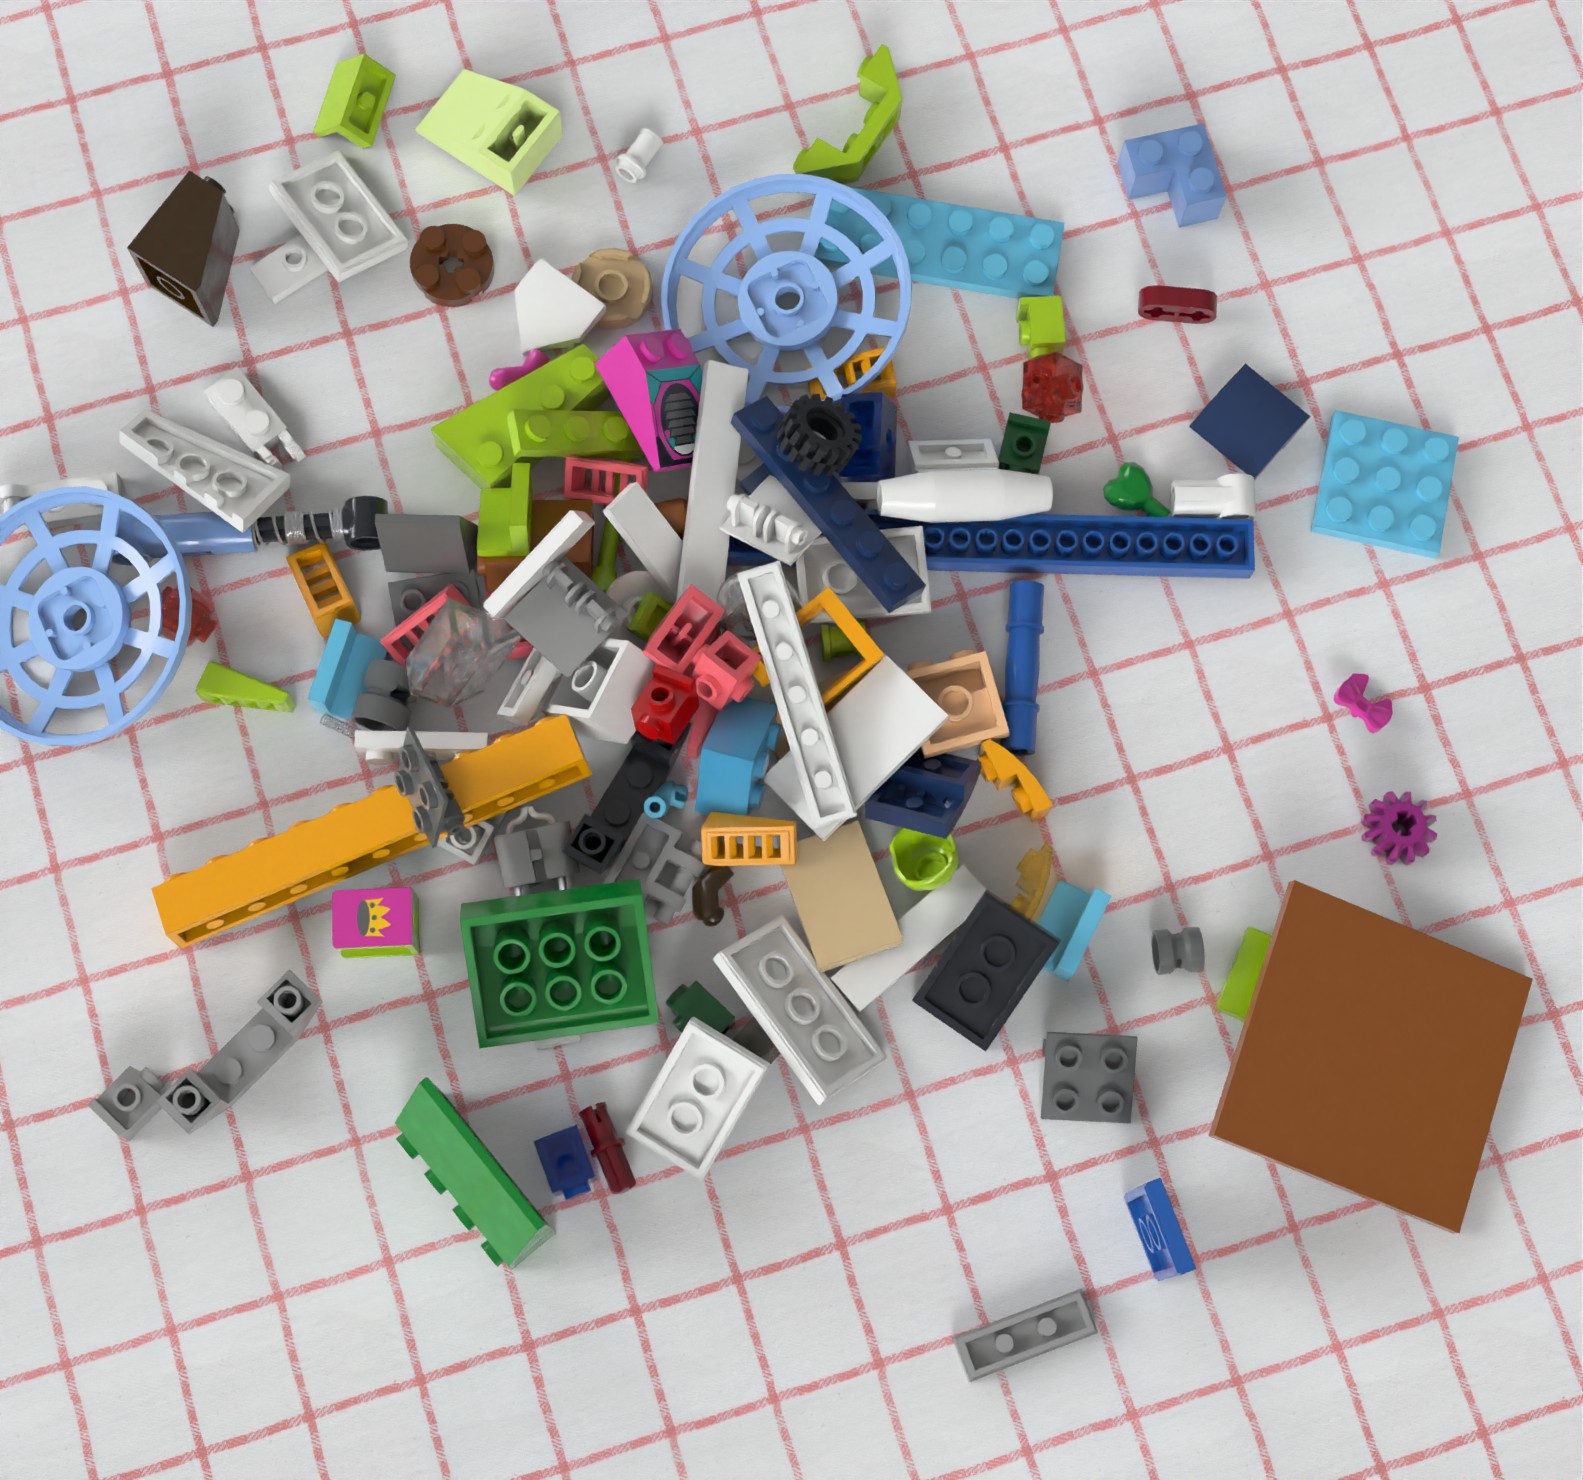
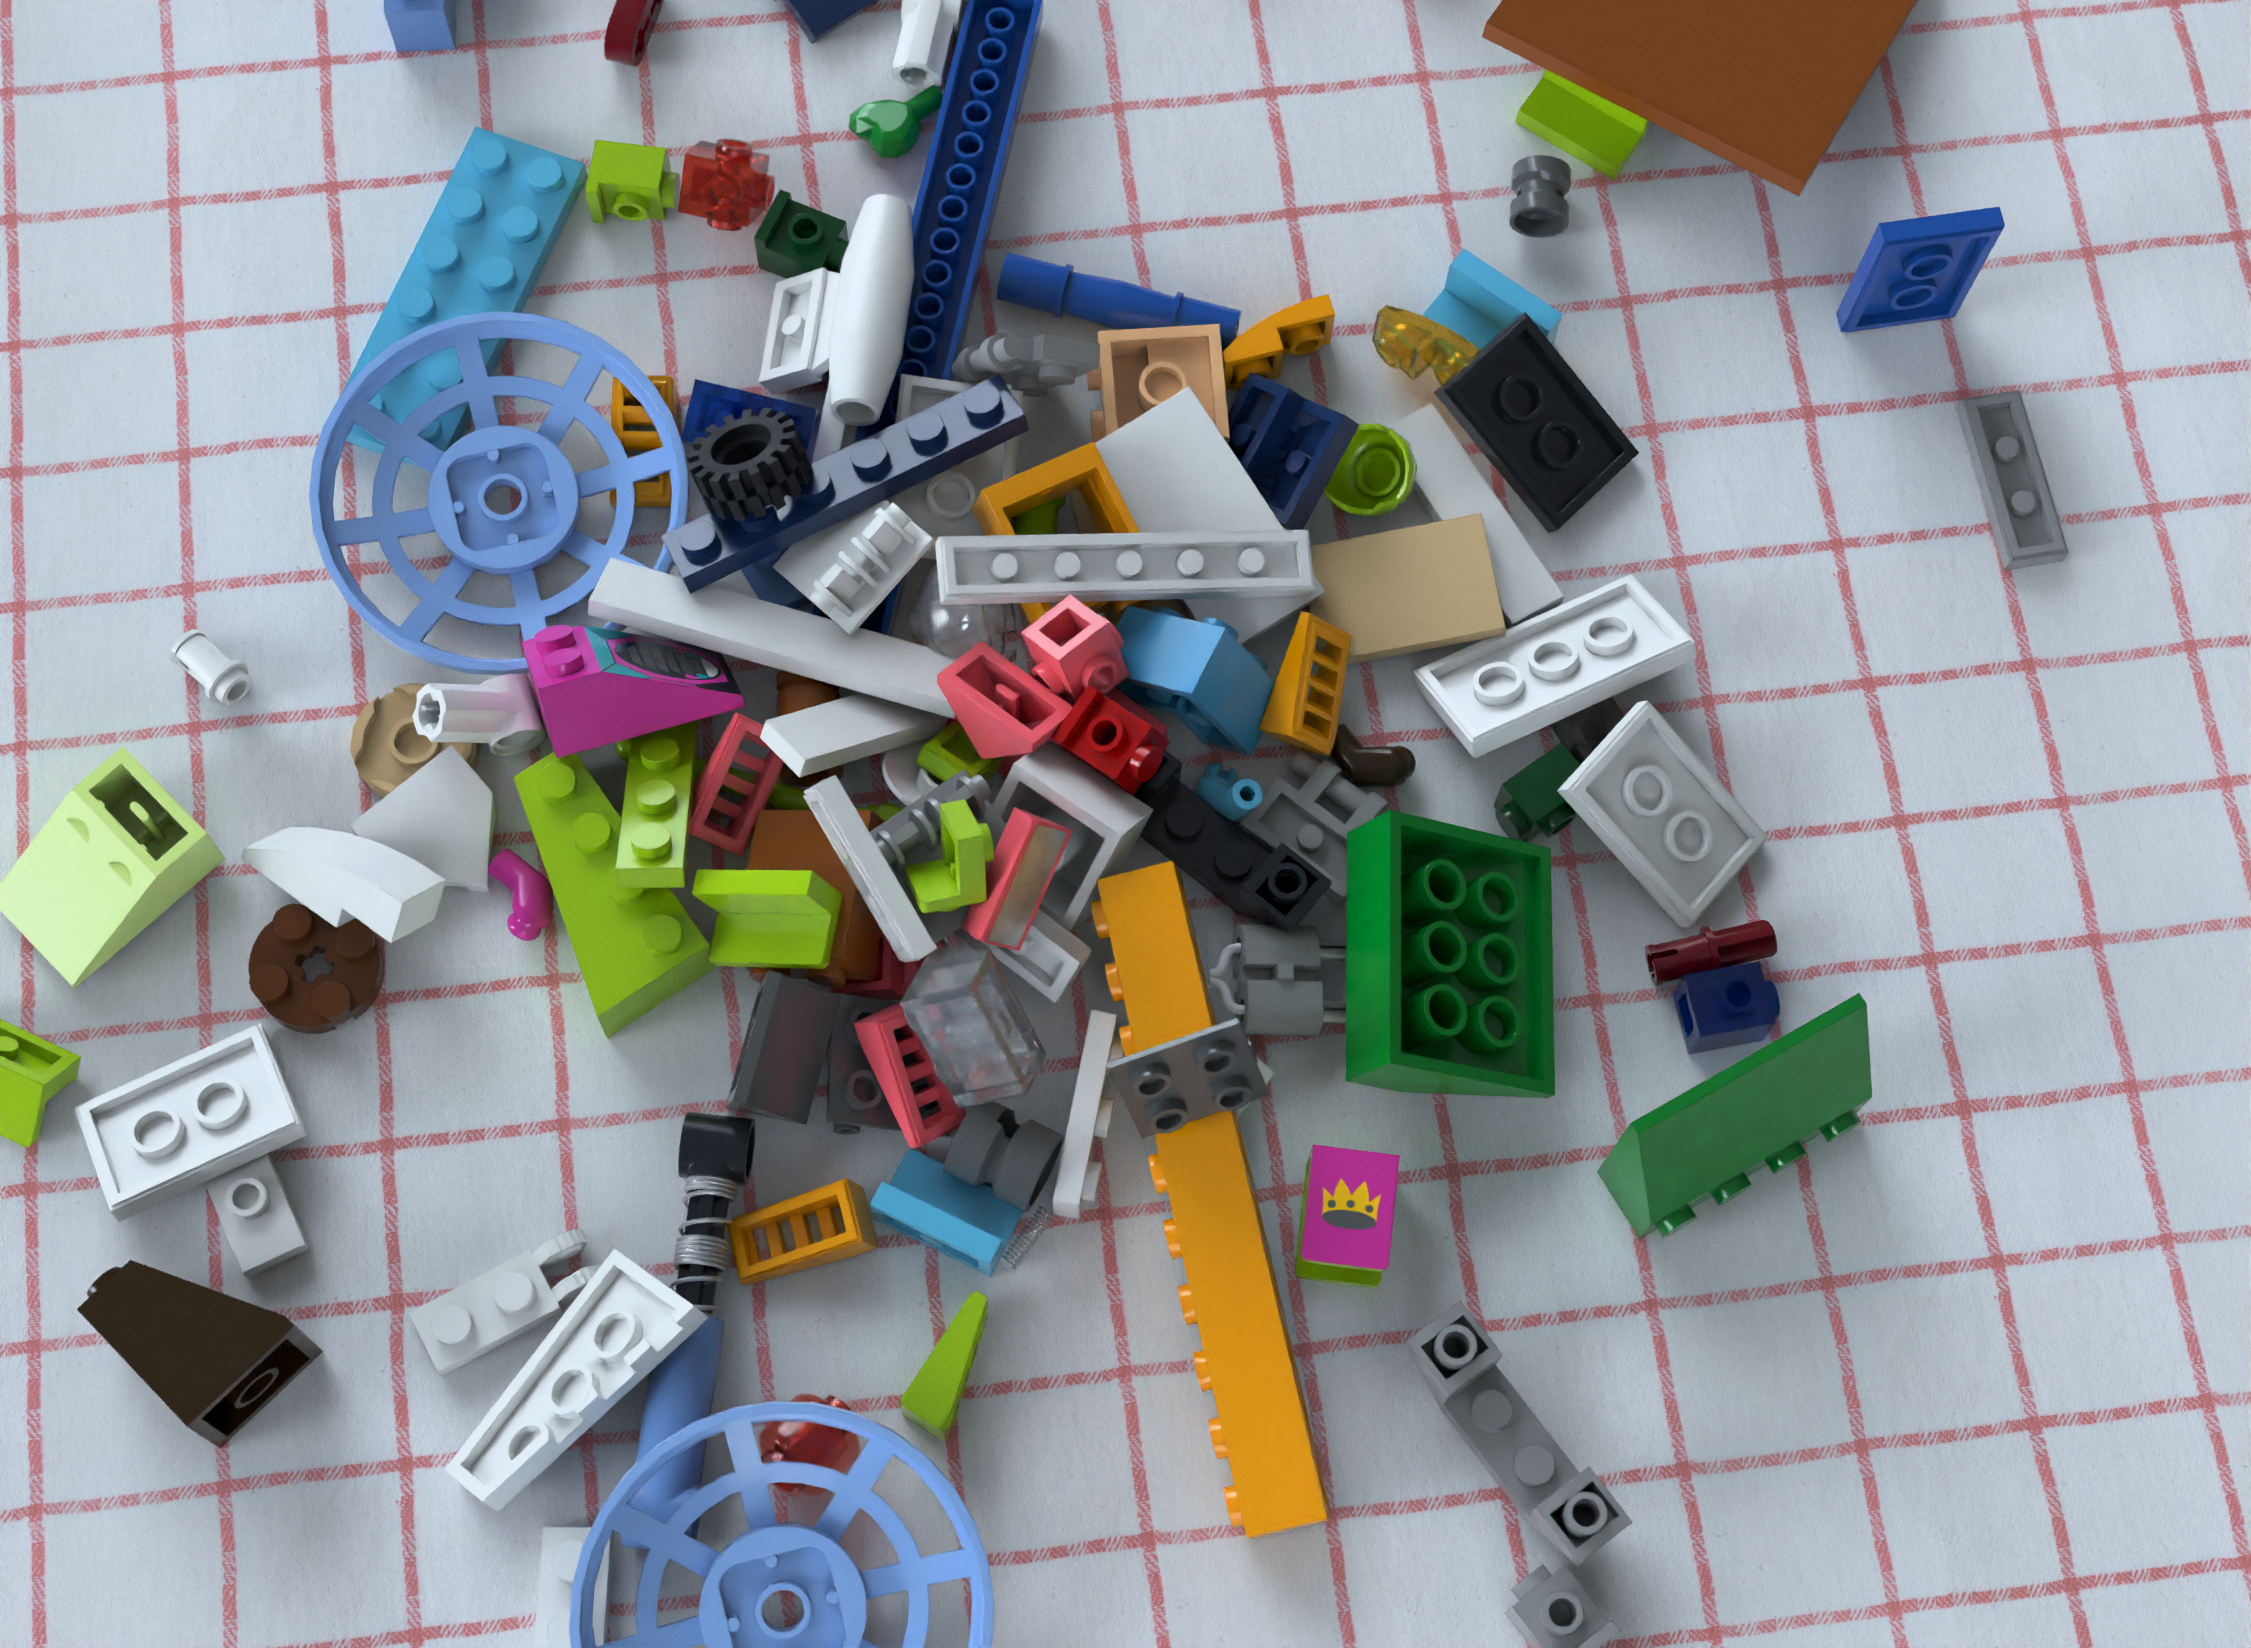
camera: 80 degrees left, 5 degrees down
(503, 264) = (349, 879): none -> white slope
(542, 615) = (961, 873): none -> lime bracket
(550, 659) = (1017, 879): none -> slope
(626, 307) = (494, 713): none -> white piece
(882, 89) = (202, 312): lime slope -> none
(949, 616) = (1027, 362): none -> light grey plate
(1088, 1077) = (1689, 335): dark grey hinge -> none

